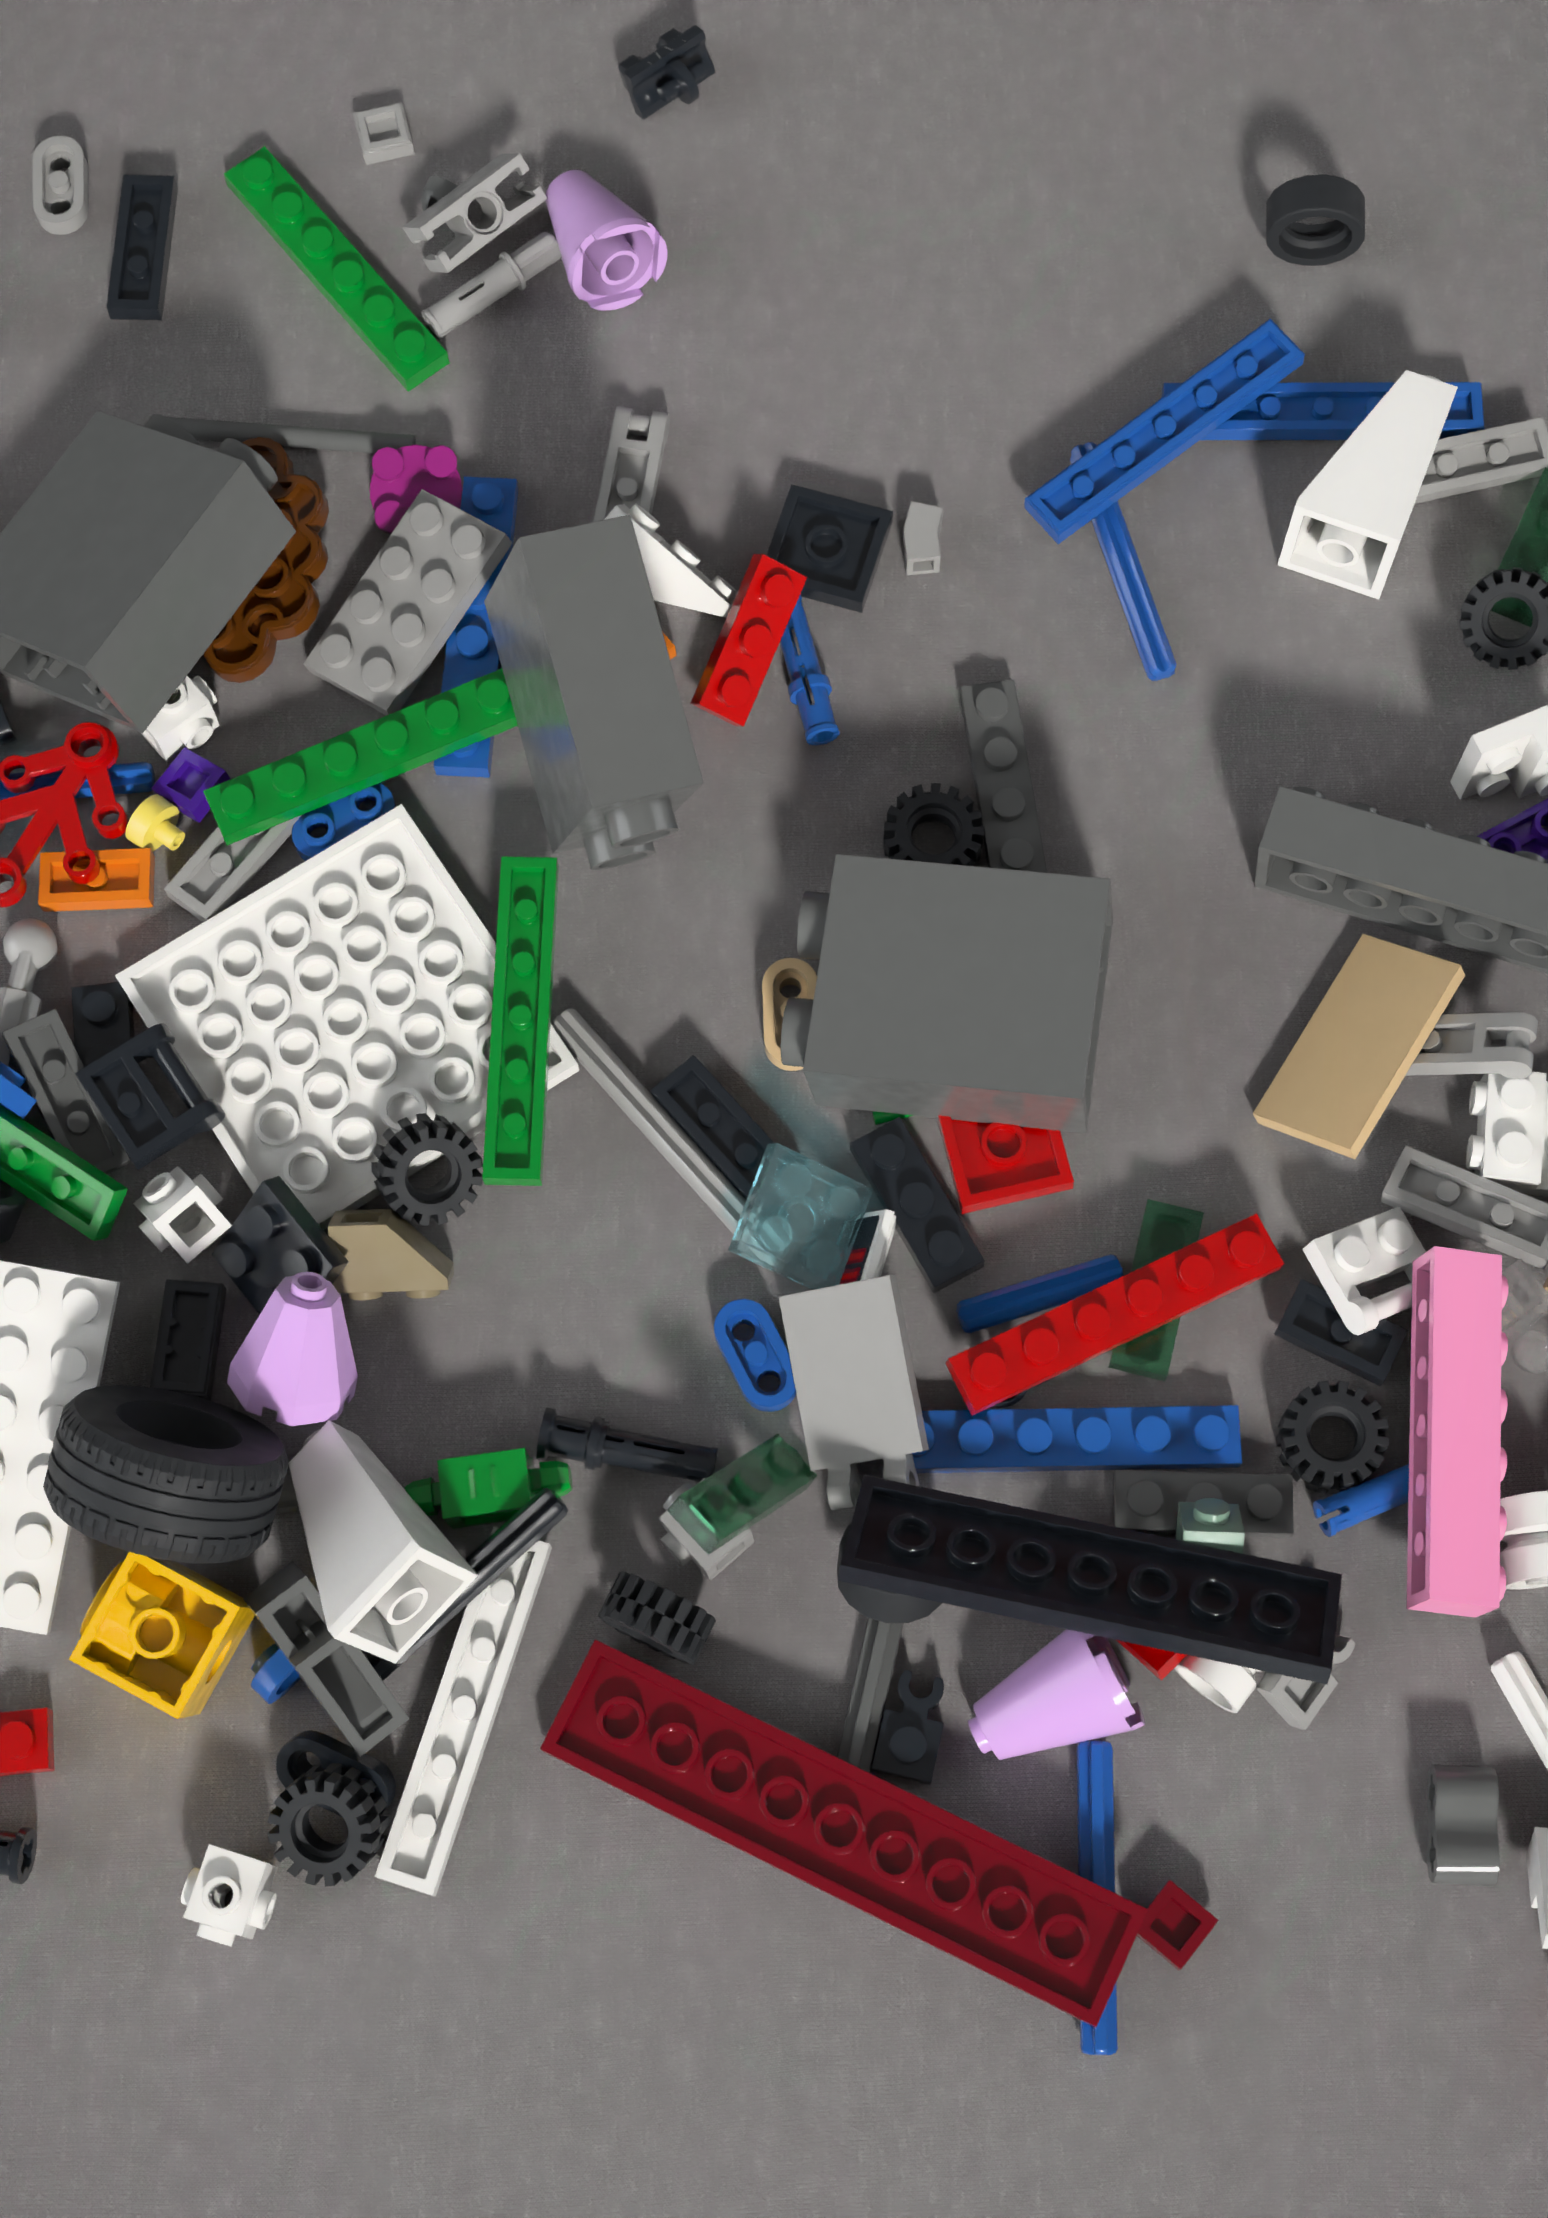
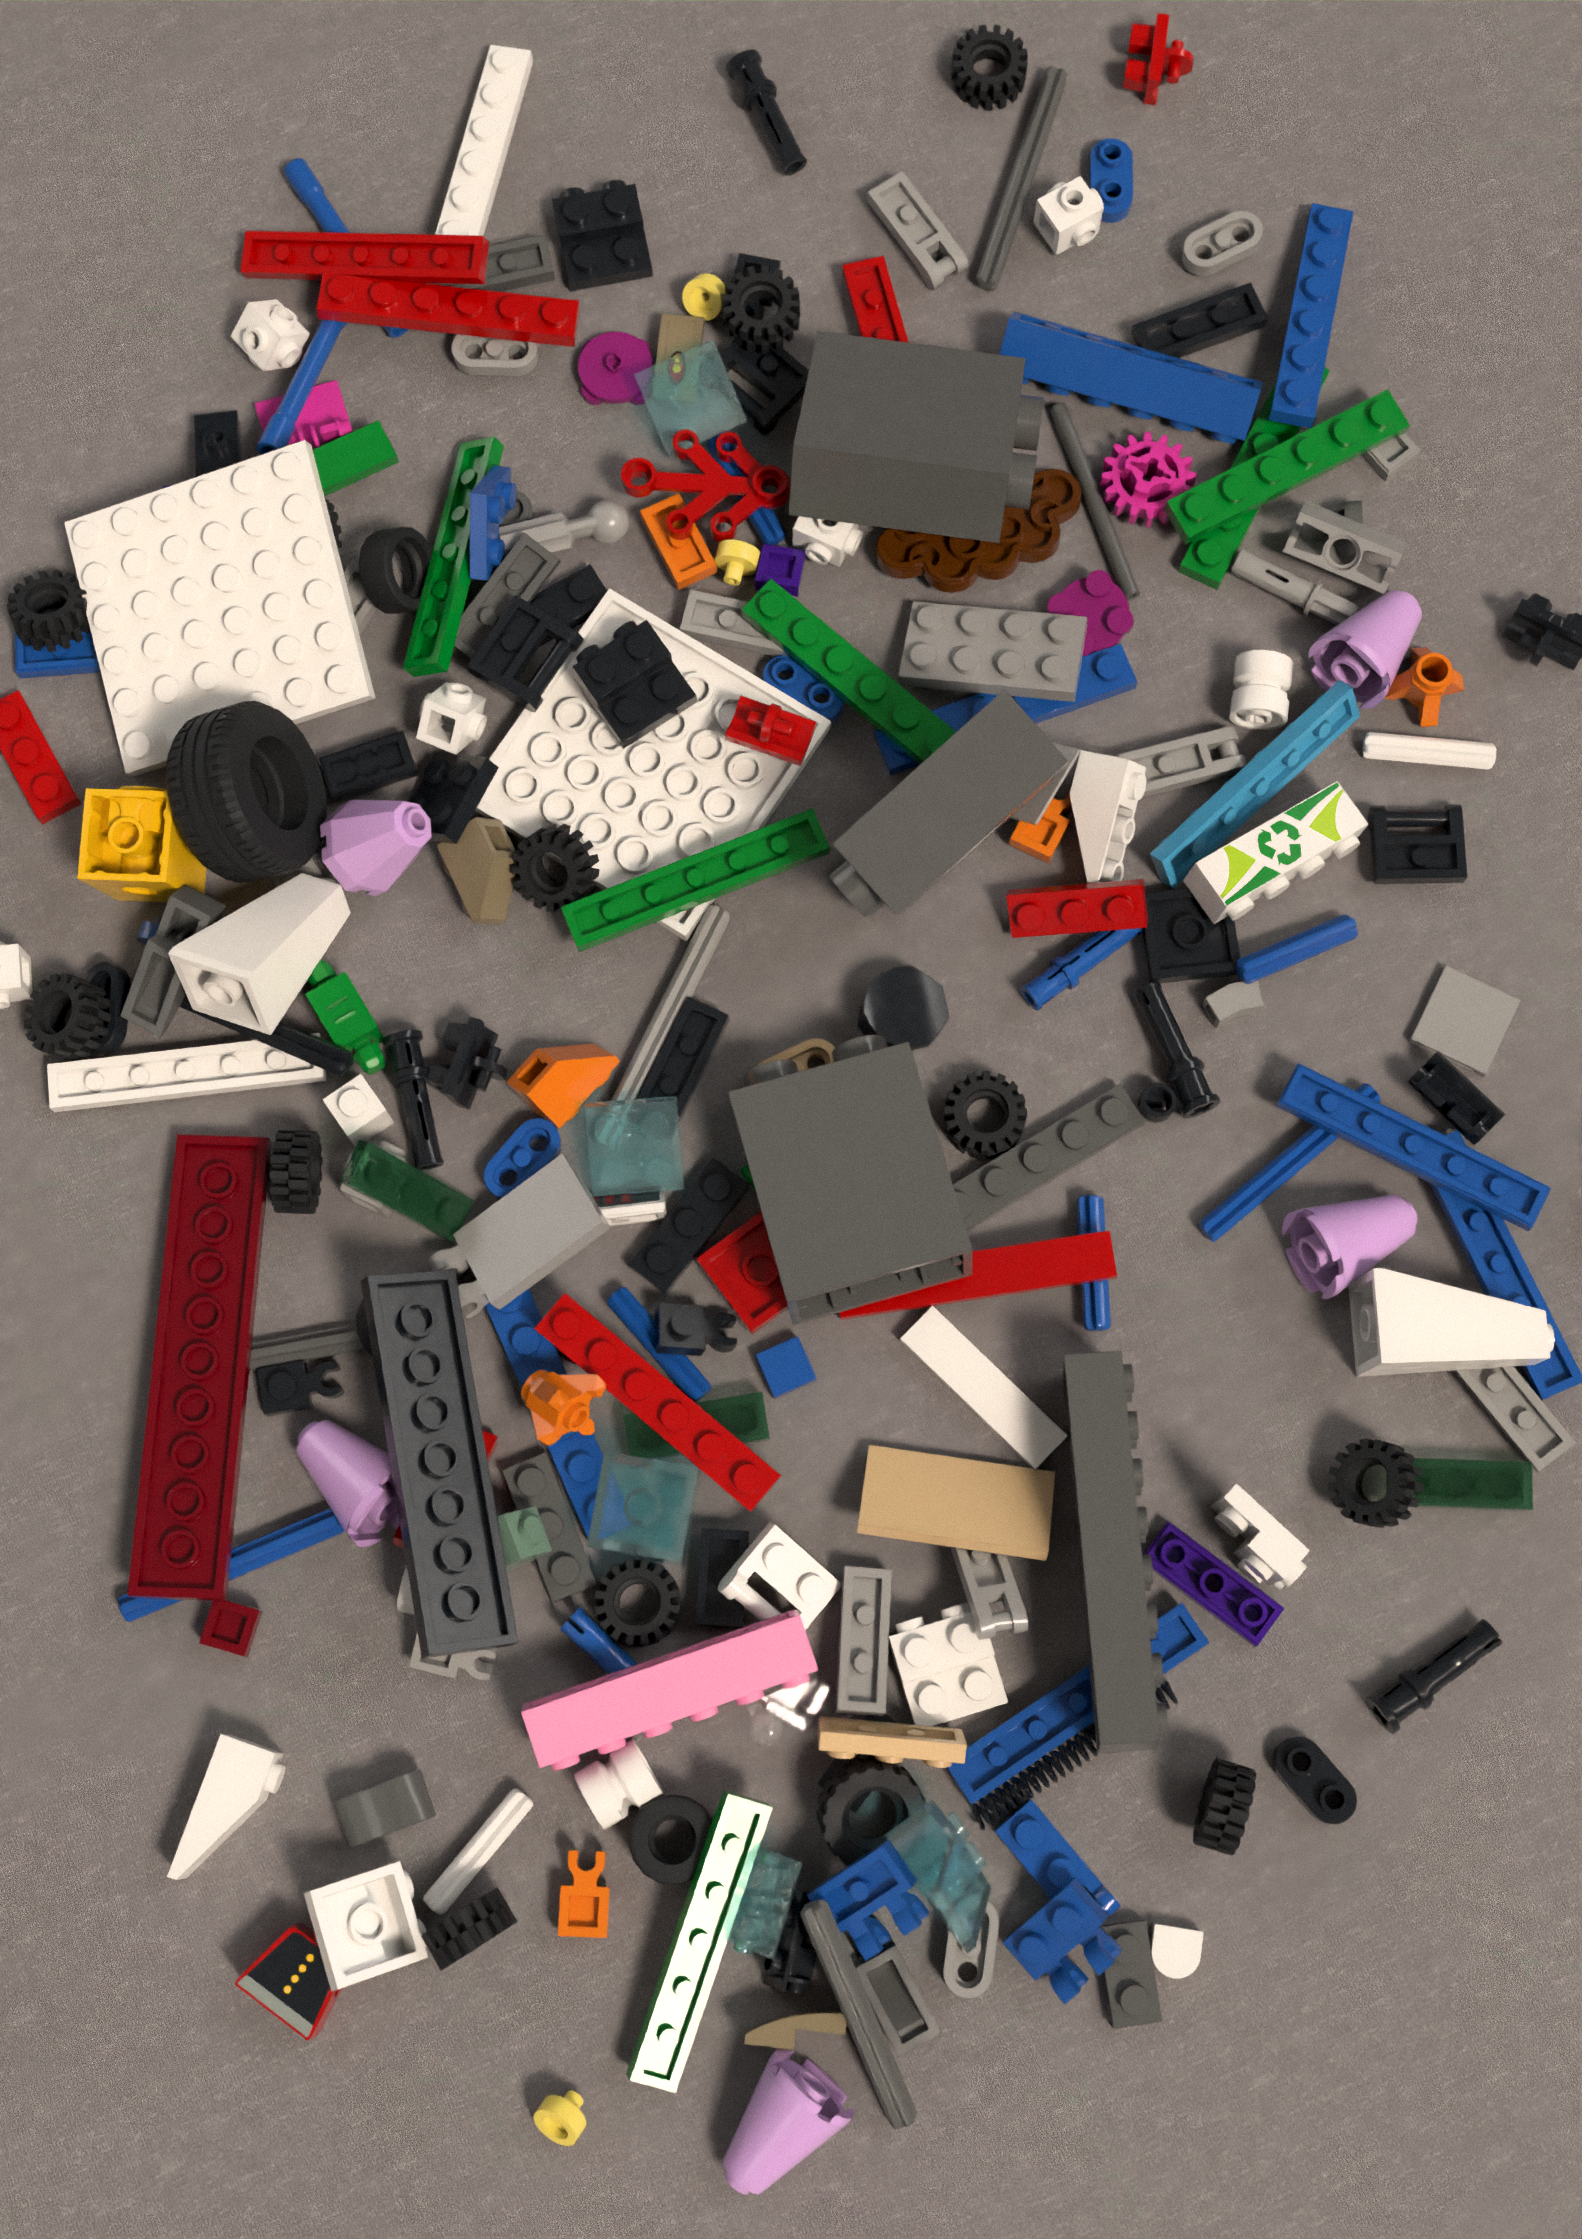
camera: 65 degrees right, 5 degrees up
(170, 329) = (1132, 377): none -> blue brick
(196, 134) = (1311, 316): none -> blue plate
(247, 991) = (633, 682): none -> black plate
(291, 370) = (1144, 460): none -> dark pink gear
(354, 230) = (1286, 466): none -> green plate
(387, 861) = (771, 730): none -> red hips
(591, 1354) = (472, 1063): none -> black hips
(596, 362) = (1261, 690): none -> white wheel
(611, 1518) = (358, 1110): none -> white brick
(666, 200) = (1426, 684): none -> orange rock
(684, 1268) = (561, 1079): none -> orange slope
(688, 401) = (1255, 783): none -> dark azure plate
(736, 238) = (1429, 750): none -> white axle
(772, 868) = (904, 1008): none -> black hat
(784, 422) = (1276, 853): none -> white brick
(848, 298) = (1418, 857): none -> black plate
(895, 451) = (1296, 949): none -> blue axle
(976, 617) = (1183, 1069): none -> black pin
(991, 657) = (1157, 1096): none -> black hinge
(1042, 1252) = (685, 1331): none -> black plate
(1044, 333) = (1464, 1020): none -> light grey piece
(1075, 1416) = (561, 1403): none -> orange rock
(1126, 1167) = (786, 1367): none -> blue tile
(1128, 372) = (1456, 1097): none -> black hinge
(1130, 863) = (1013, 1271): none -> red tile
(1147, 798) = (1095, 1294): none -> blue axle
(1236, 1373) = (644, 1508): none -> clear light blue slope
(1237, 969) = (983, 1388): none -> white tile
(1238, 540) = (1345, 1240): none -> lavender cone
(1377, 2002) = (230, 1793): none -> white slope

